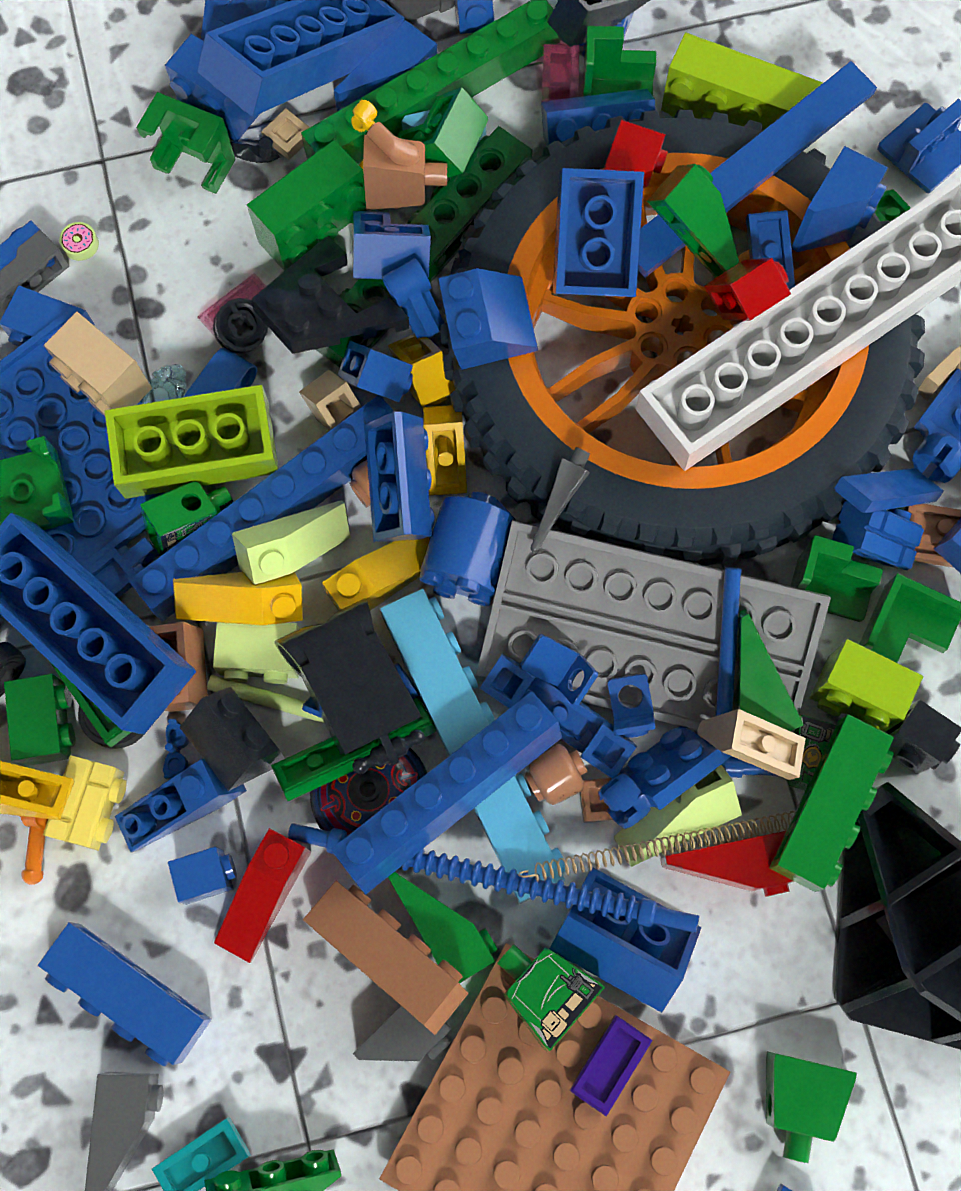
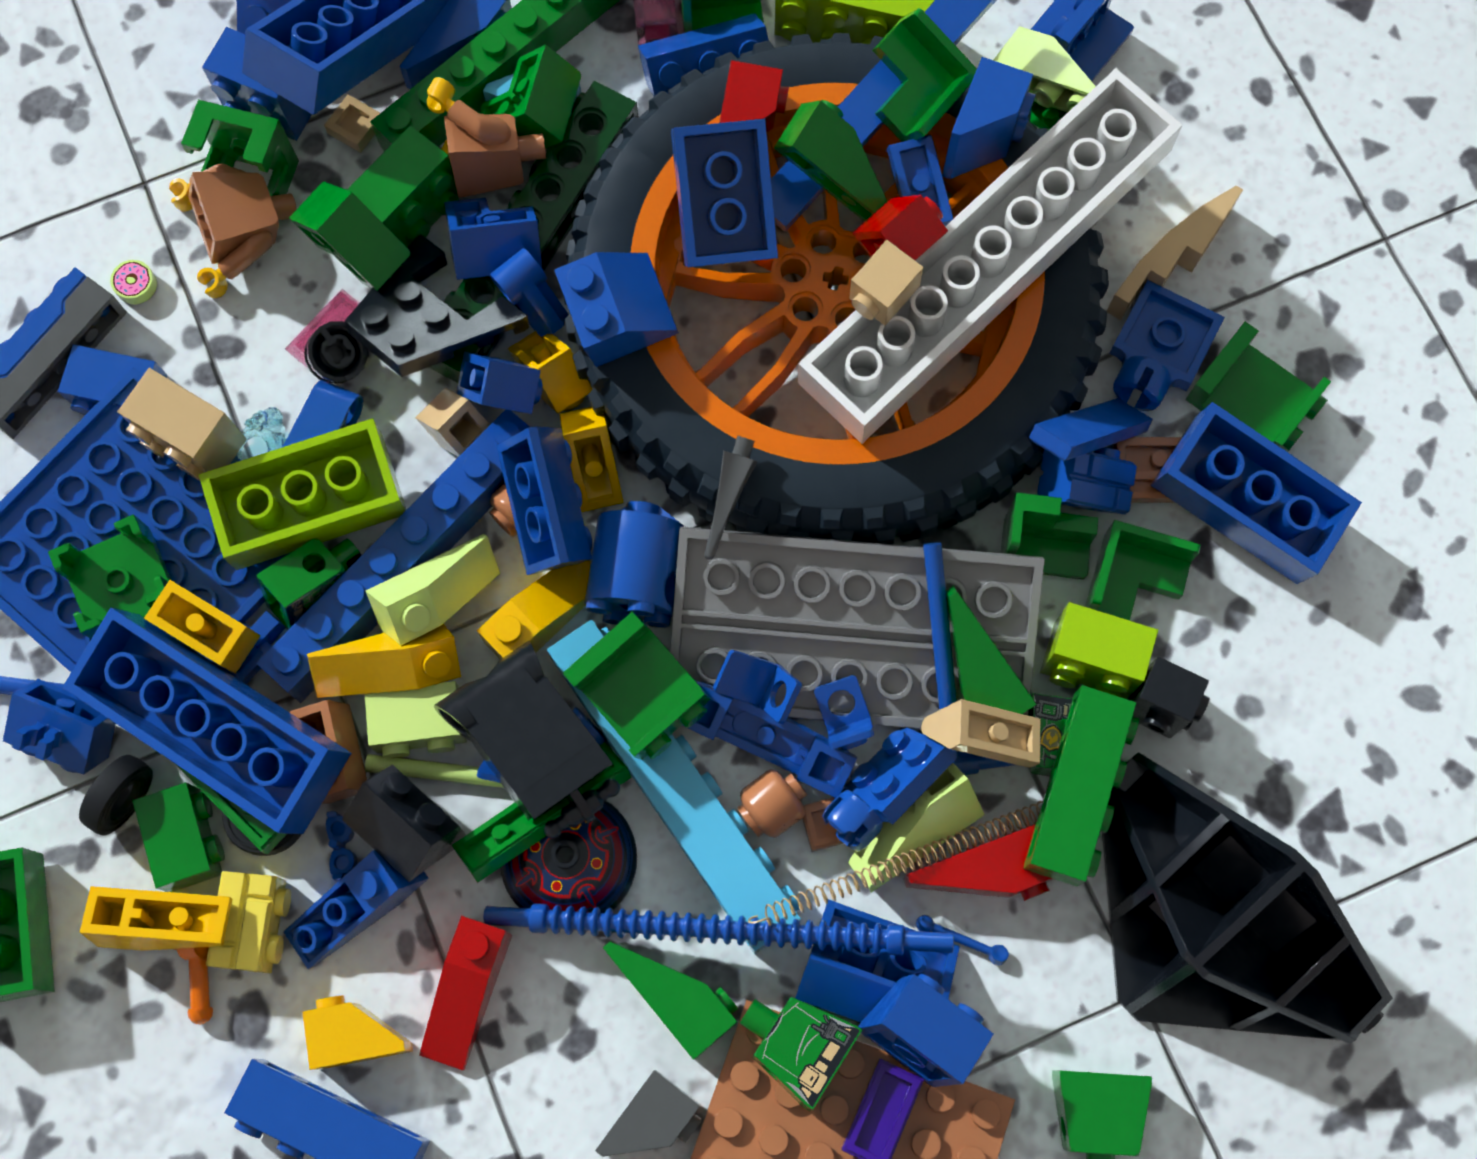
camera: 10 degrees left, 0 degrees up
(87, 542) = (202, 626): none -> yellow slope
(155, 915) = (348, 1034): none -> yellow slope
(172, 199) = (234, 219): none -> nougat torso
(202, 875) = (394, 981): blue brick -> none
(255, 152) = (320, 149): black bar -> none
(269, 224) = (352, 233): none -> green panel
(386, 957) = (615, 1036): nougat brick -> none
(448, 792) = (655, 843): blue brick -> none
(454, 653) = (638, 687): none -> green panel
(663, 998) = (927, 1031): none -> blue slope
(728, 331) = (885, 283): none -> tan brick
(733, 940) = (997, 954): none -> blue hinge
(794, 154) = (930, 73): none -> green panel
(905, 177) = (1055, 77): none -> yellowish green slope

